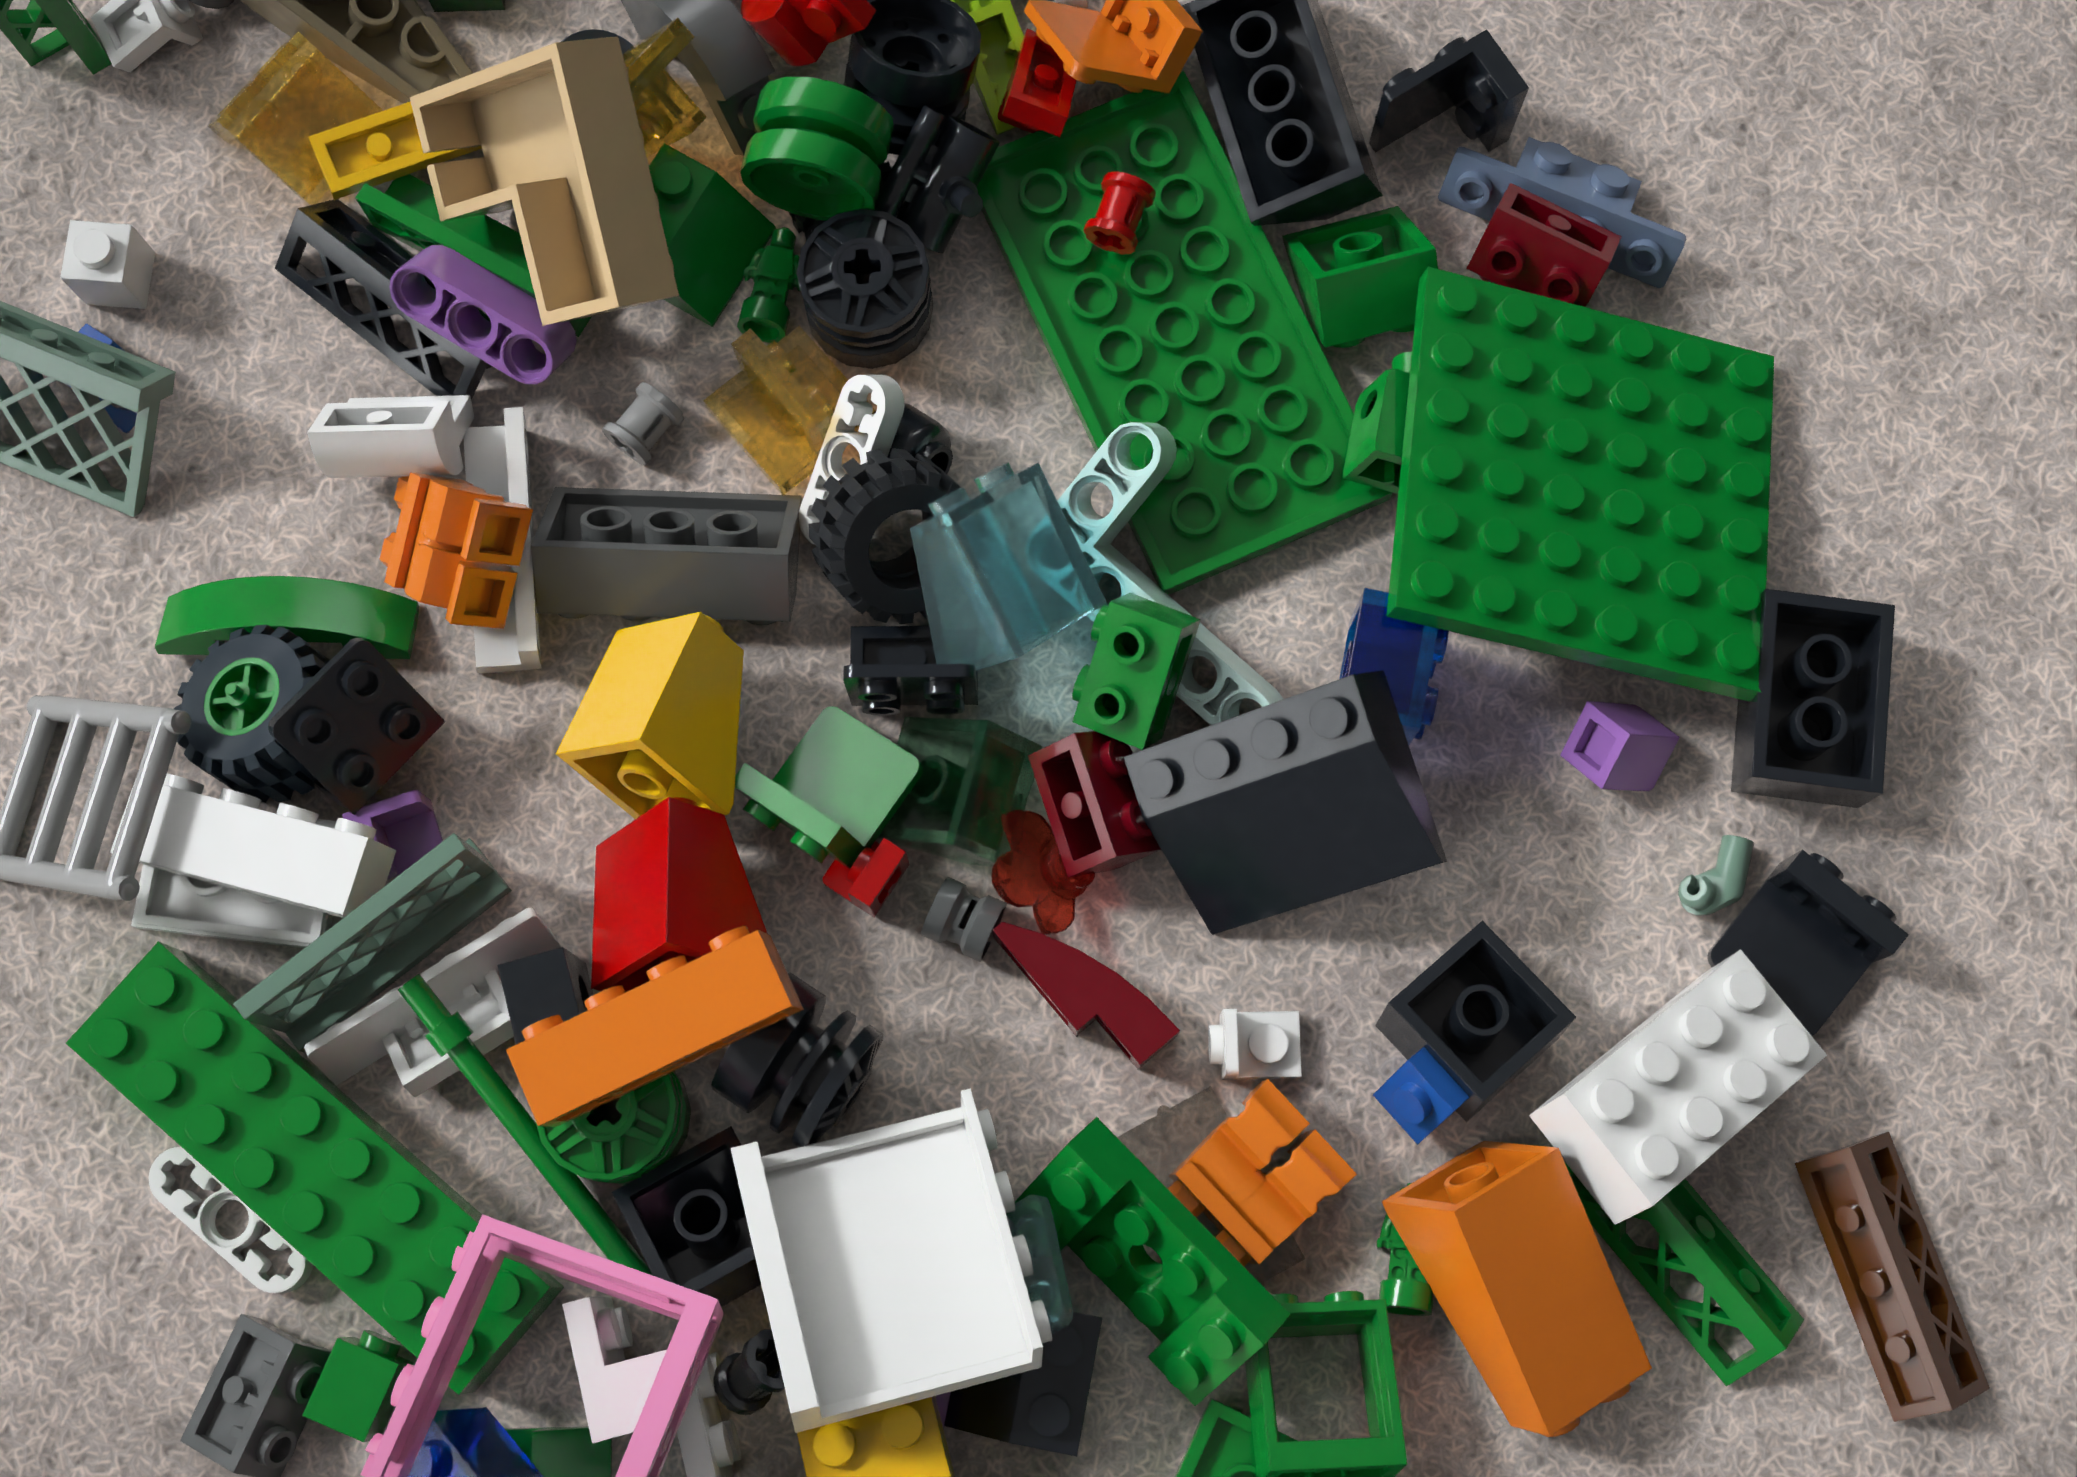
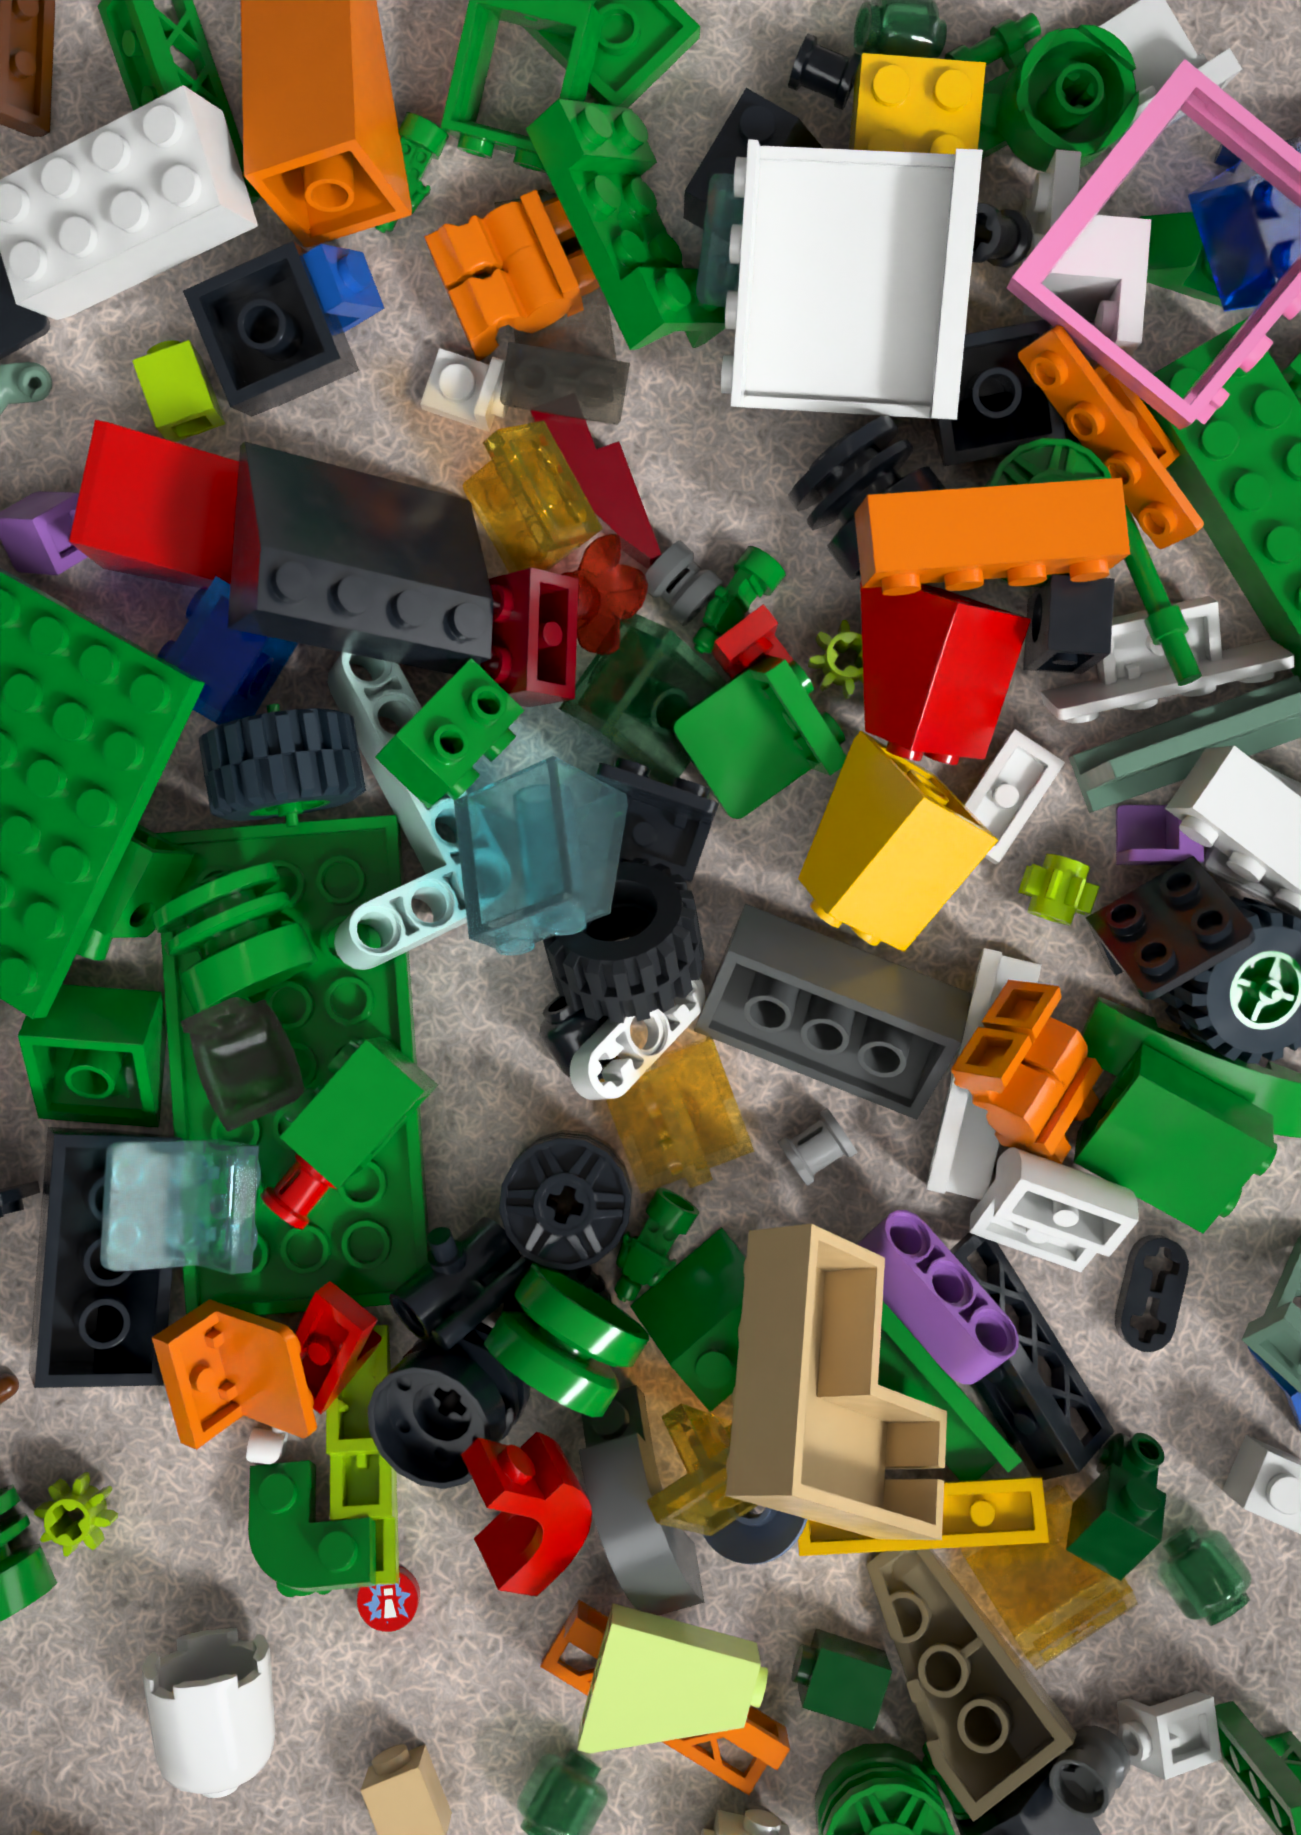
camera: 165 degrees left, 10 degrees up
(151, 166) = (1204, 1575): none -> clear green head
(246, 186) = (1122, 1510): none -> dark green brick
(289, 402) = (1166, 1295): none -> black beam
(292, 538) = (1176, 1139): none -> green brick
(481, 744) = (1058, 889): none -> lime gear
(558, 1208) = (1117, 430): none -> orange bracket
(560, 827) = (1012, 789): none -> white plate
(764, 882) = (841, 642): none -> lime gear
(906, 910) = (755, 576): none -> green piece
(1089, 289) = (358, 1109): none -> green brick
(1141, 935) = (530, 499): none -> clear yellow bracket
(1154, 1072) = (564, 383): none -> clear smoke bracket
(1213, 301) = (243, 1060): none -> clear smoke piece
(1223, 156) = (180, 1205): none -> clear light blue bracket
(1256, 392) = (233, 936): none -> green wheel
(1288, 585) = (281, 764): none -> black wheel
(1509, 797) = (156, 508): none -> red slope
(1548, 934) = (178, 390): none -> lime brick

